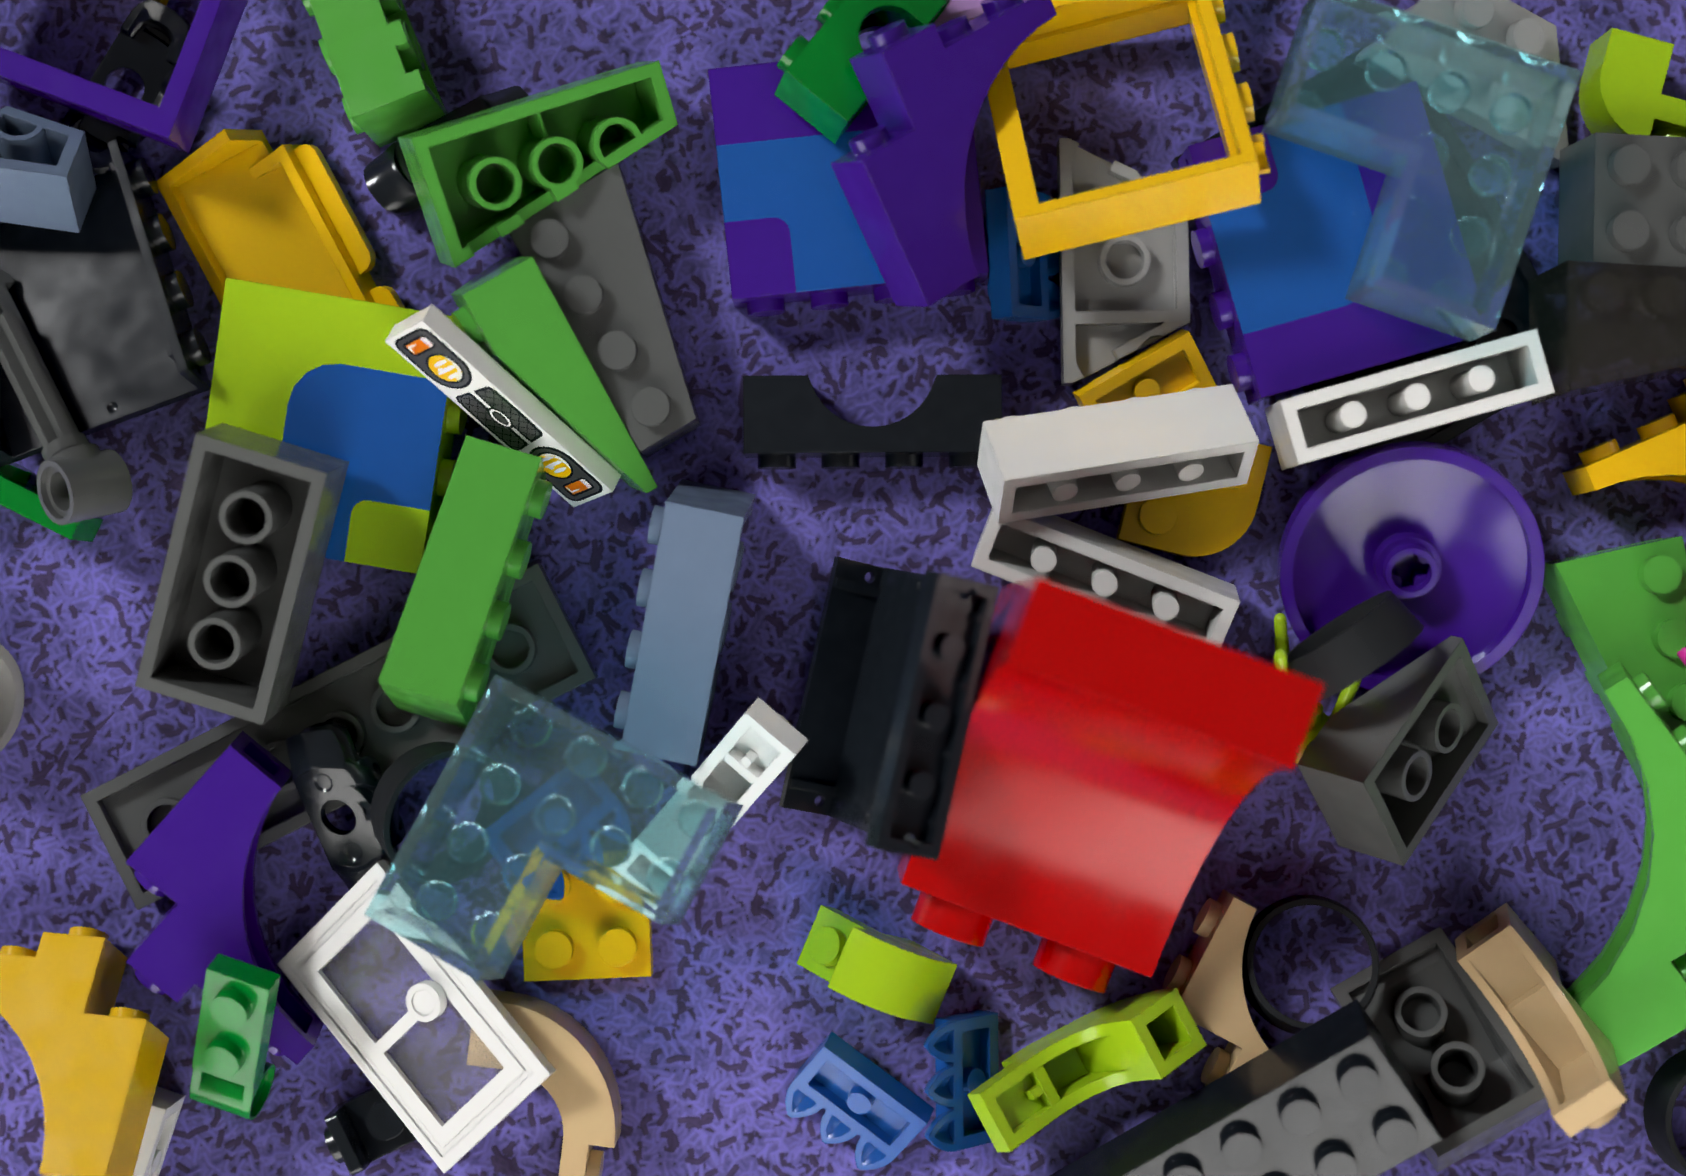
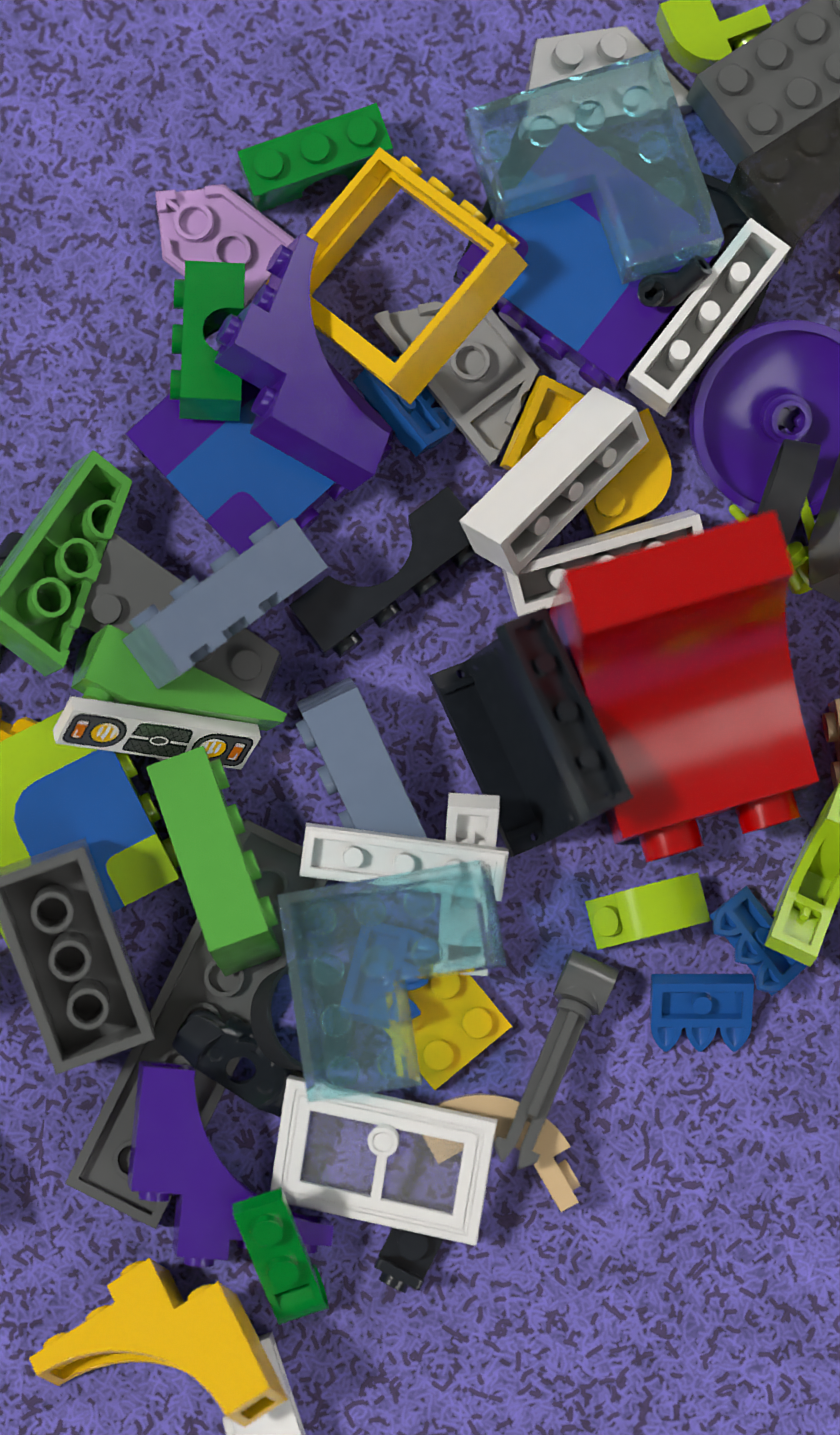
camera: 35 degrees left, 5 degrees down
(649, 717) = (365, 854): none -> white tile
(670, 323) = (224, 603): none -> sand blue wedge
(748, 996) = (581, 993): none -> dark grey piece
(1397, 342) = (673, 287): none -> black arm

